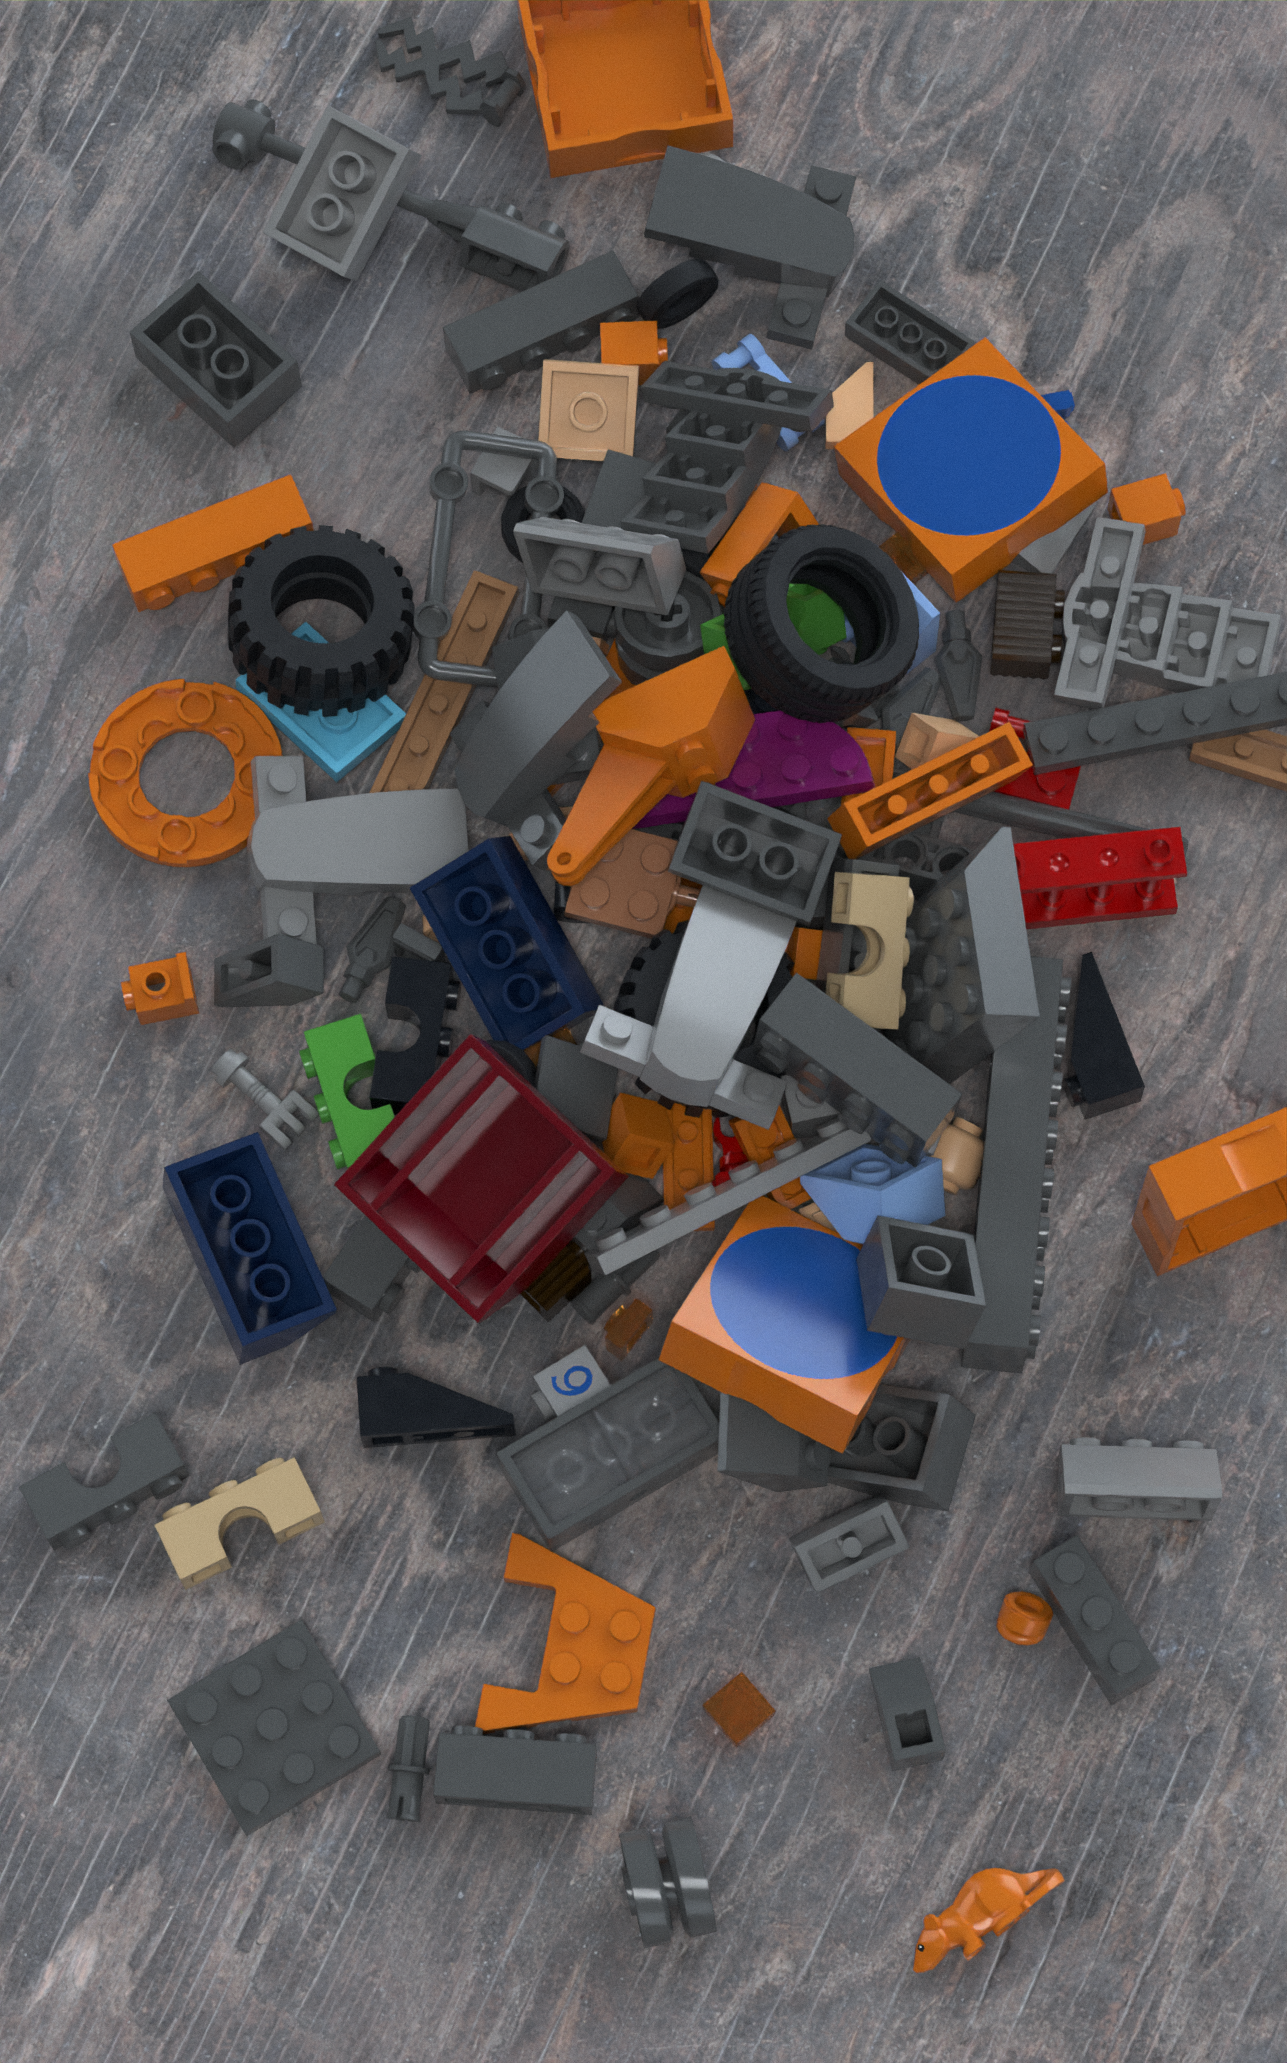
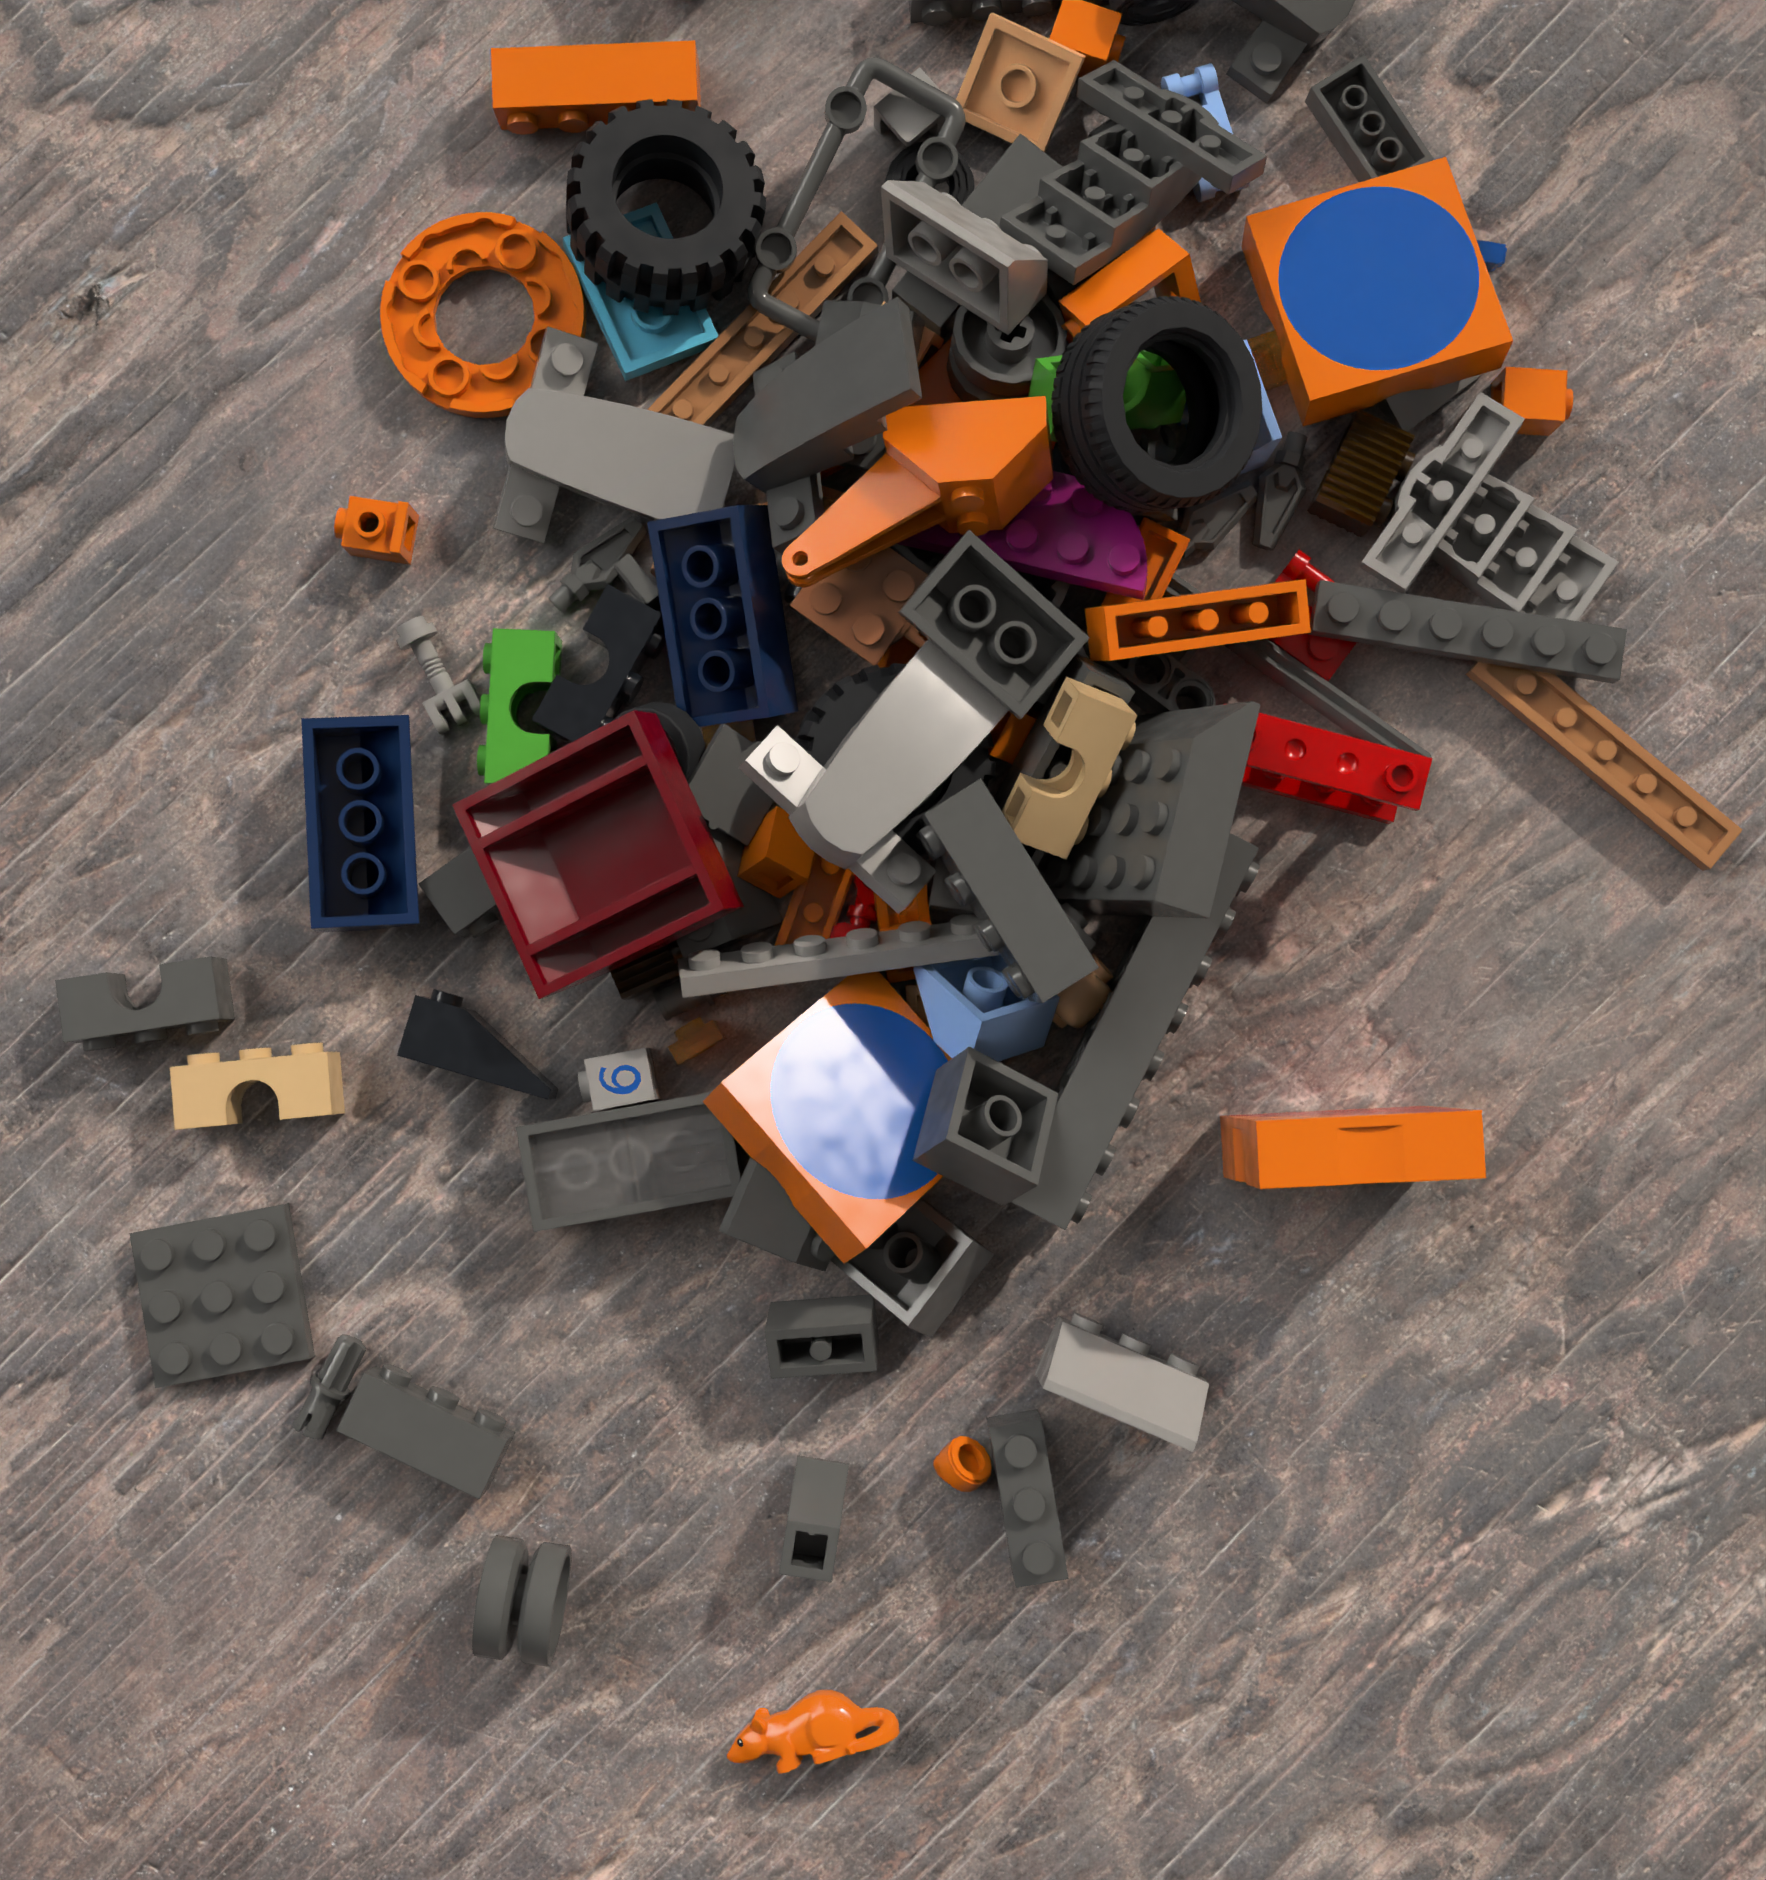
camera: 15 degrees right, 15 degrees up
(269, 973) = (488, 553): dark grey slope -> none
(591, 1651) = (544, 1337): orange wing -> none
(738, 1709) = (661, 1445): clear orange plate -> none
(852, 406) = (1282, 178): light nougat tile -> none
(929, 738) = (1224, 563): light nougat panel -> none
(1100, 1060) = (1256, 947): black slope -> none

